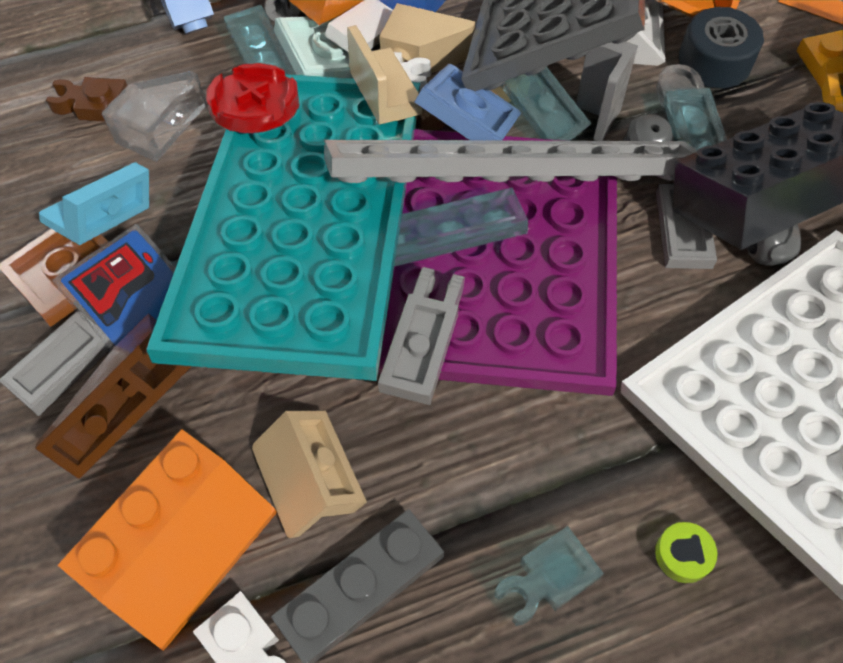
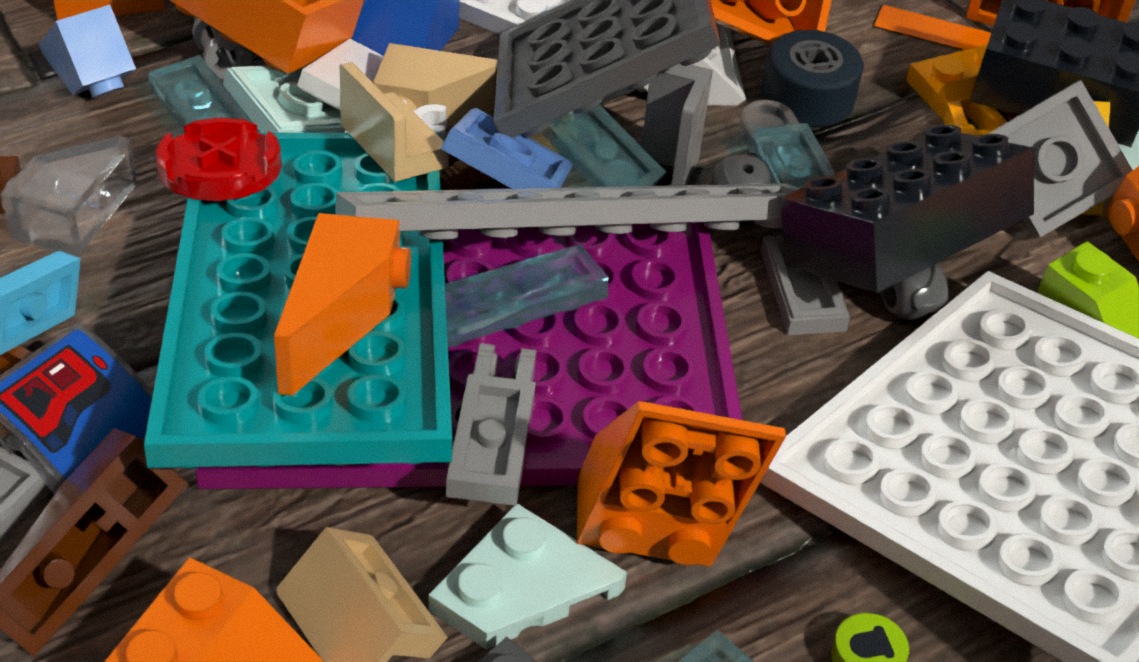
camera: 15 degrees left, 15 degrees down
(308, 232) = (338, 294): none -> orange slope
(429, 458) = (521, 579): none -> light aqua wing
(546, 411) = (671, 482): none -> orange slope

